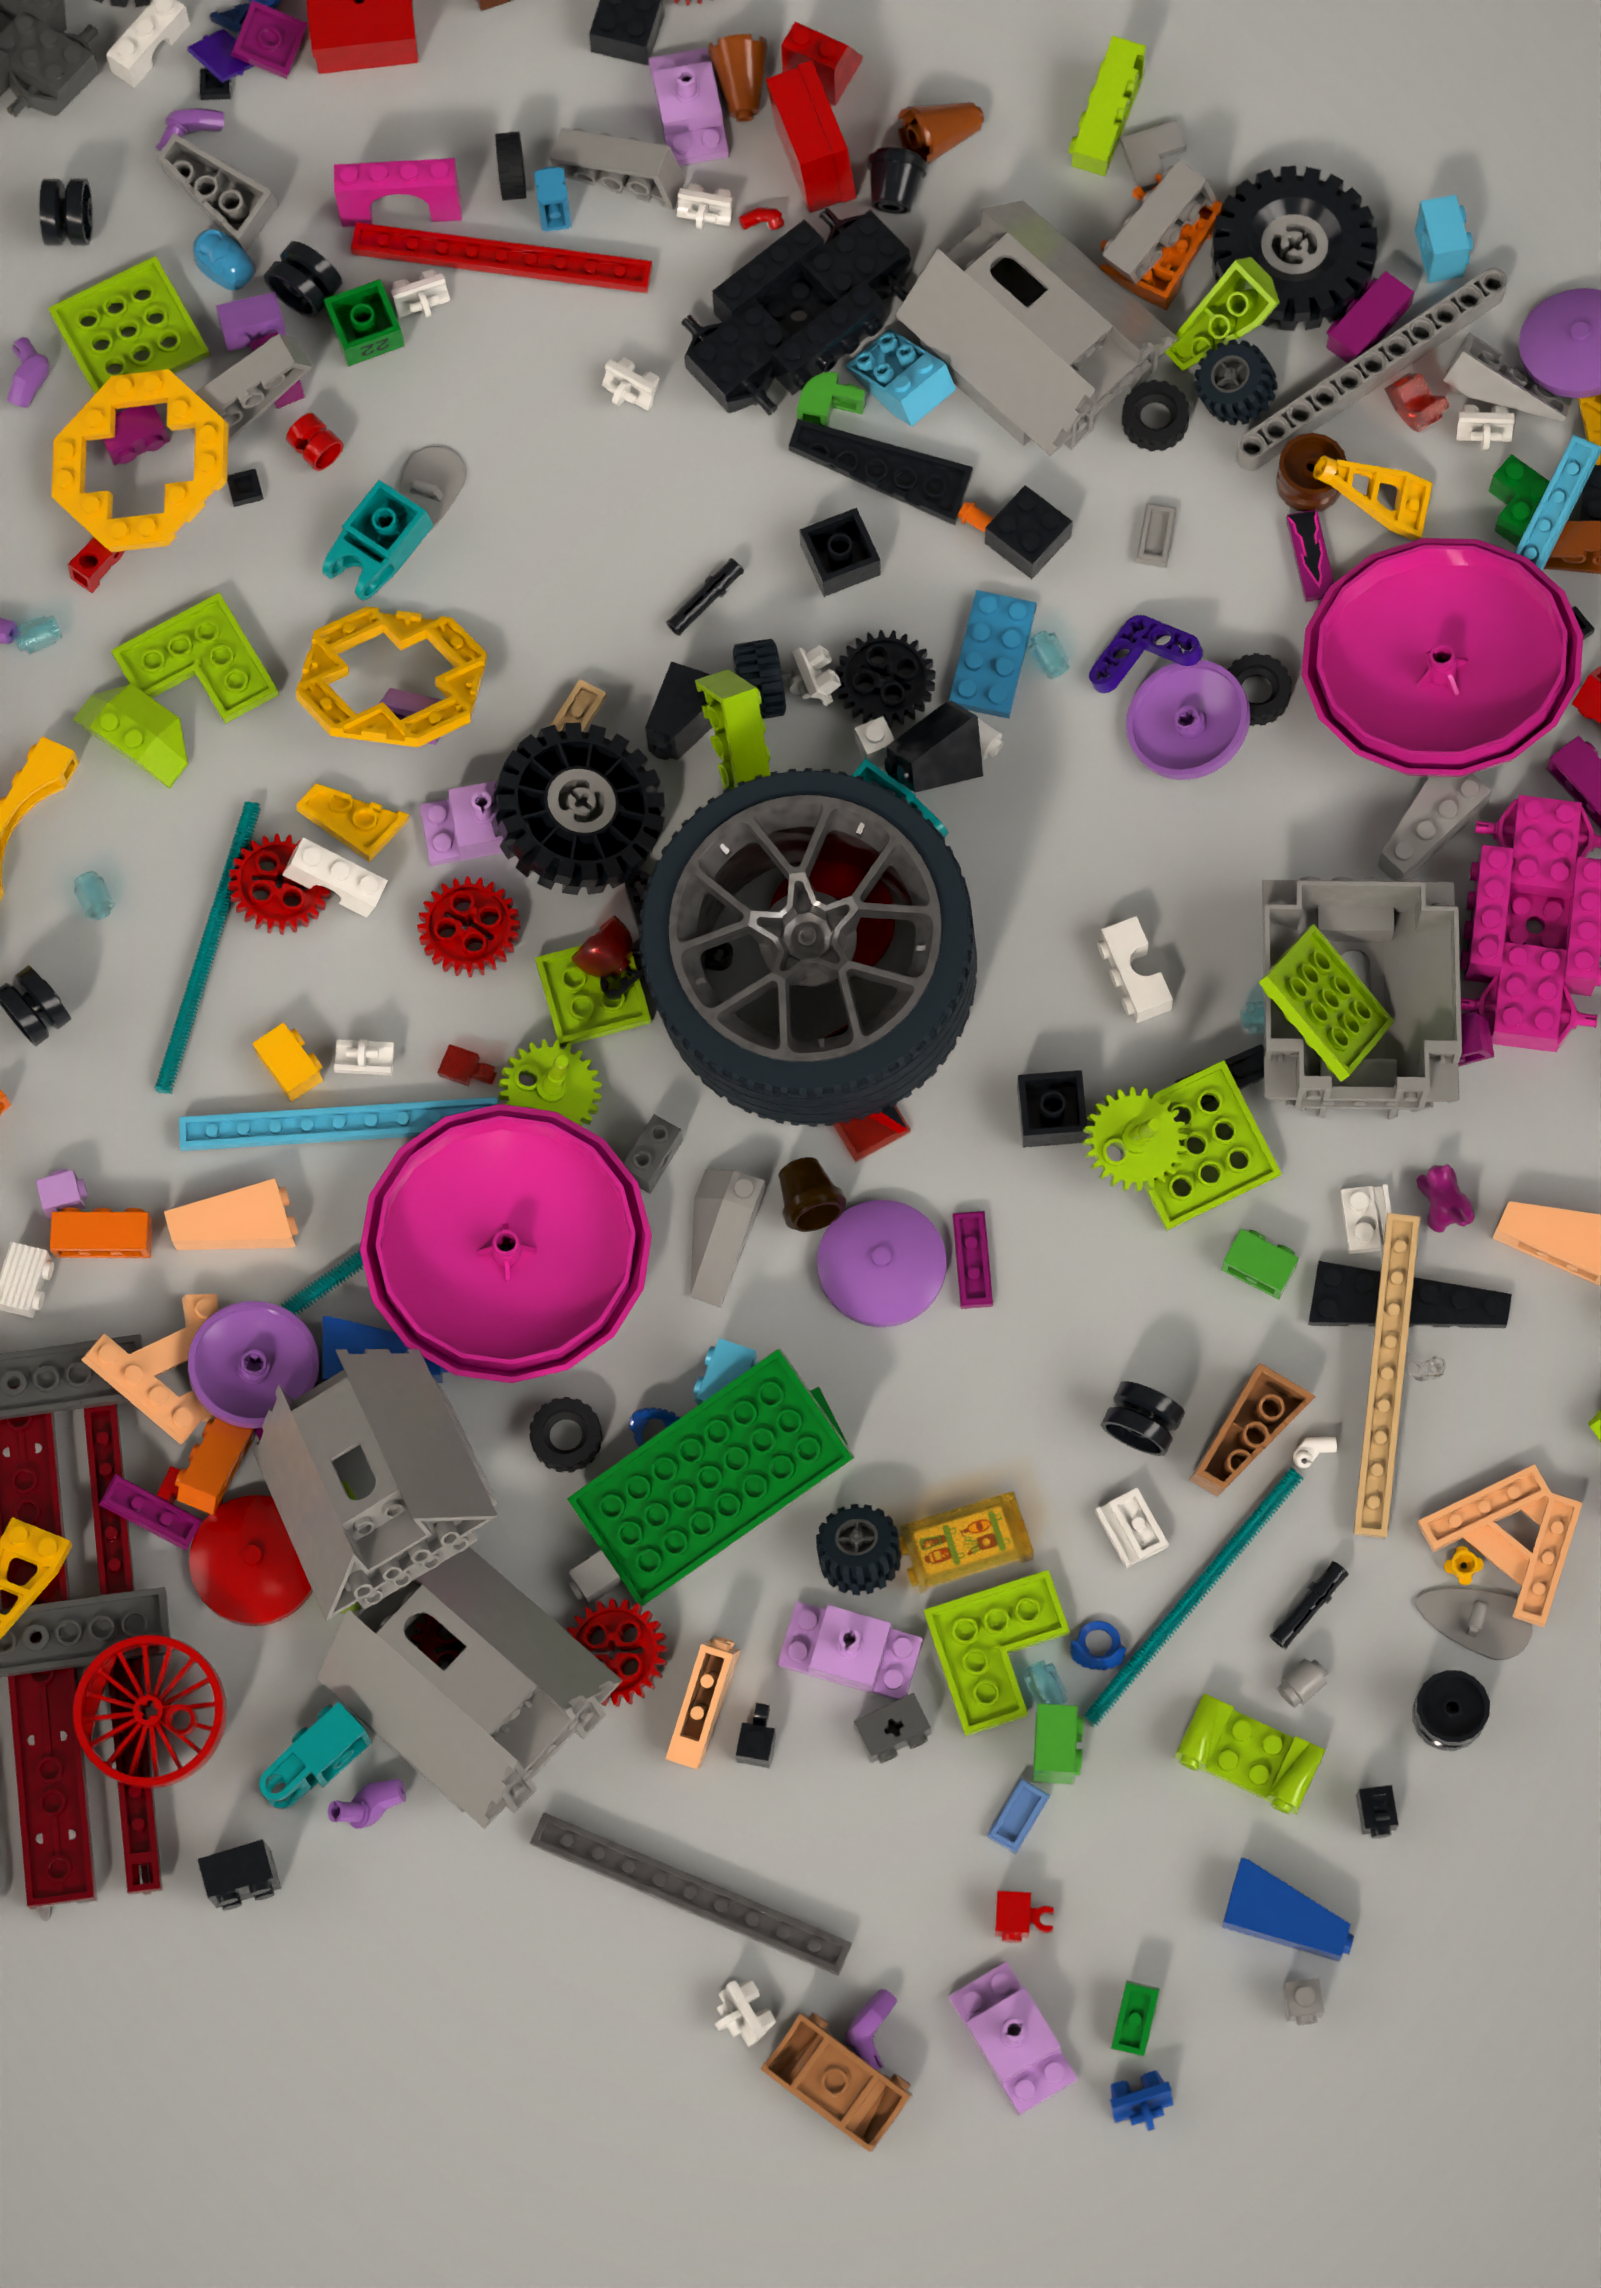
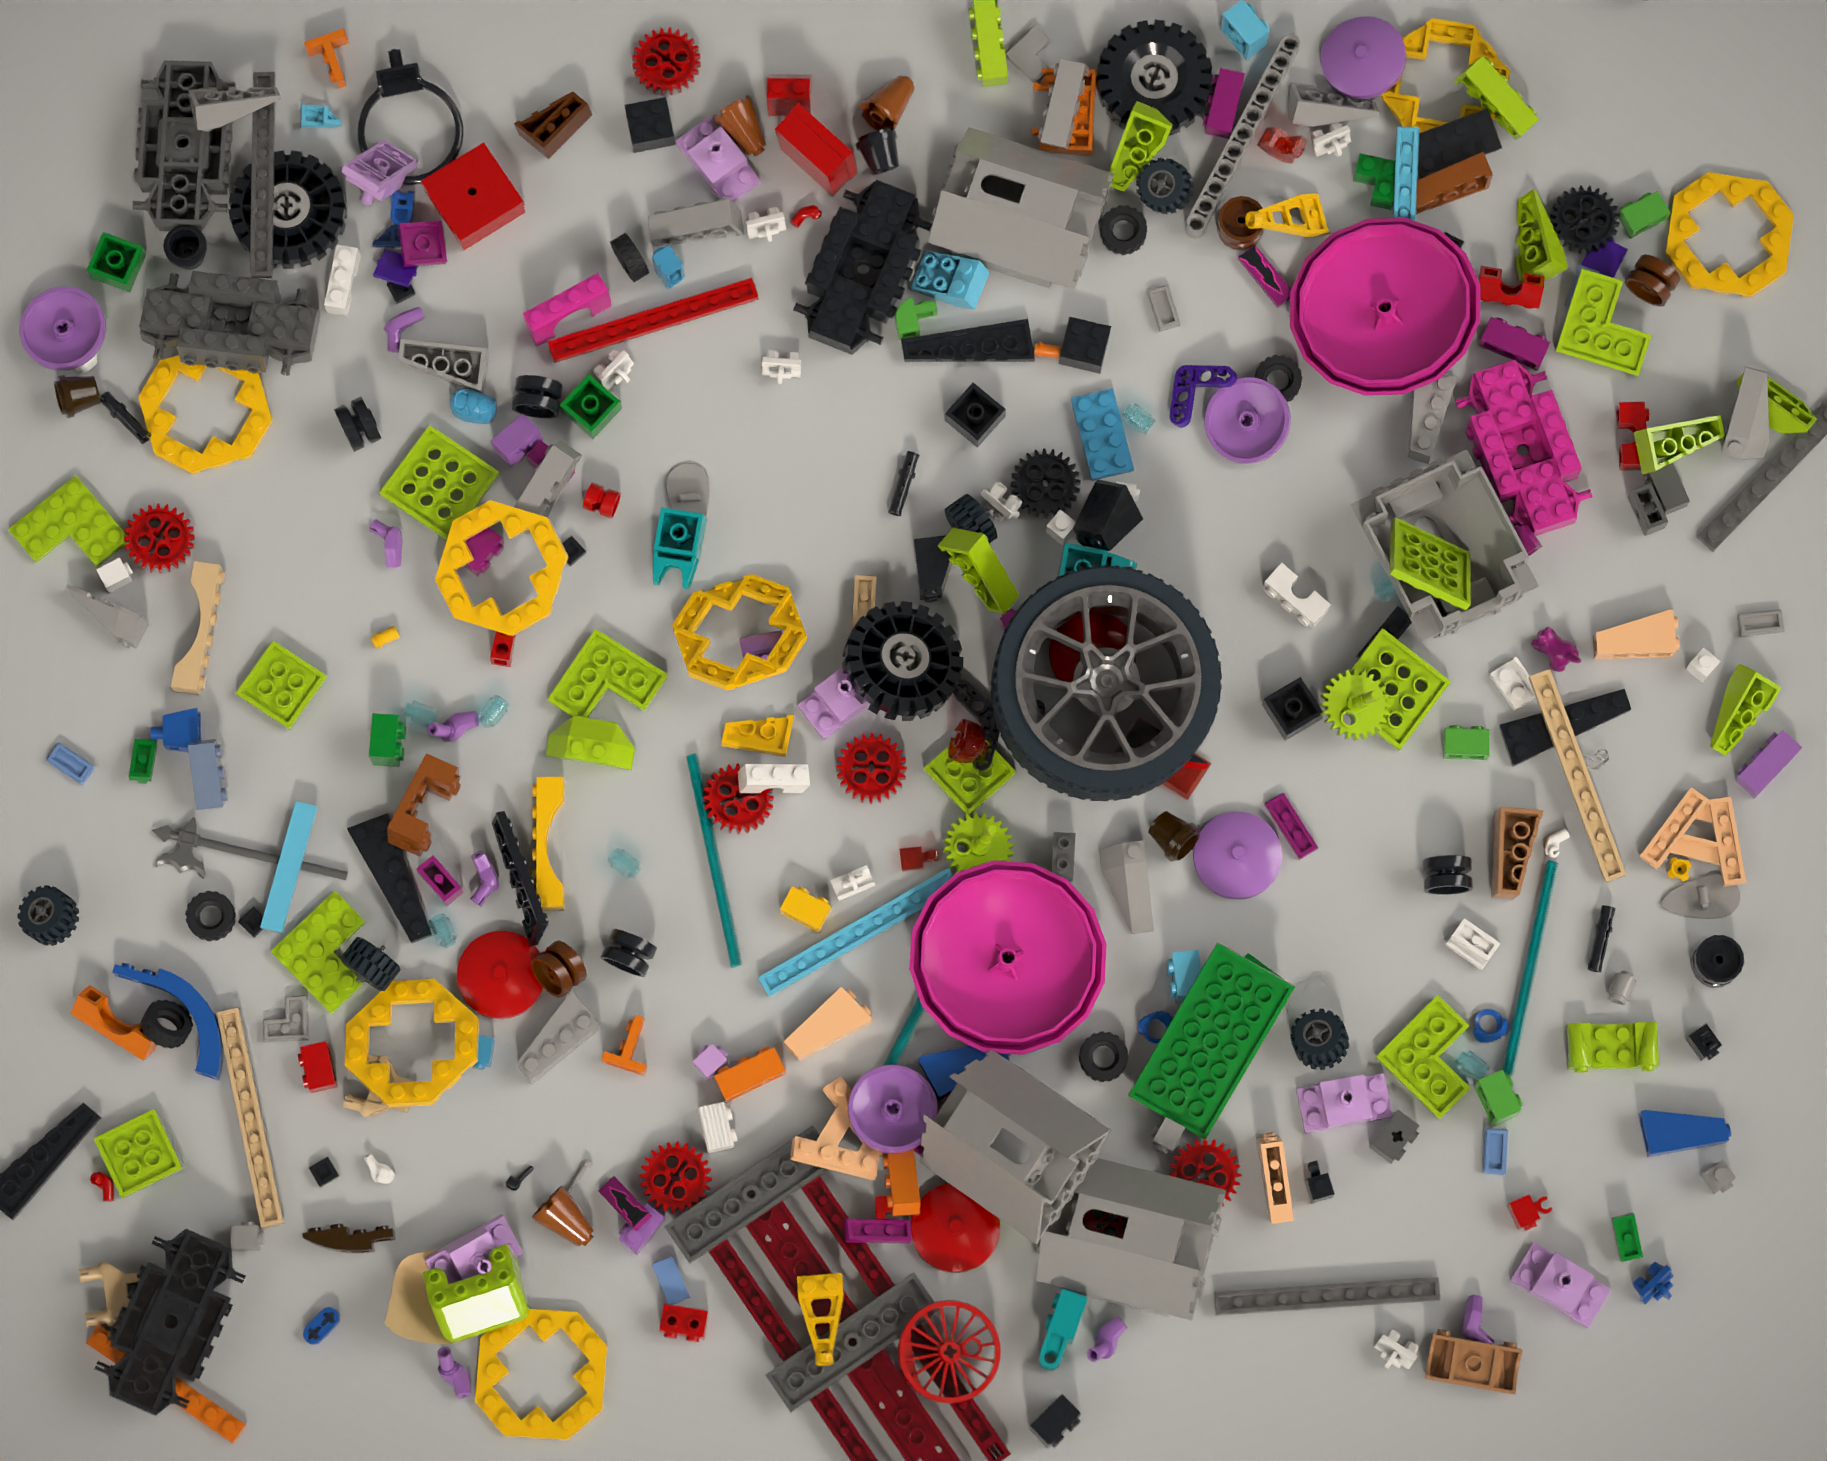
camera: 30 degrees left, 5 degrees up
(965, 1541) = (1380, 1002): clear yellow panel -> none

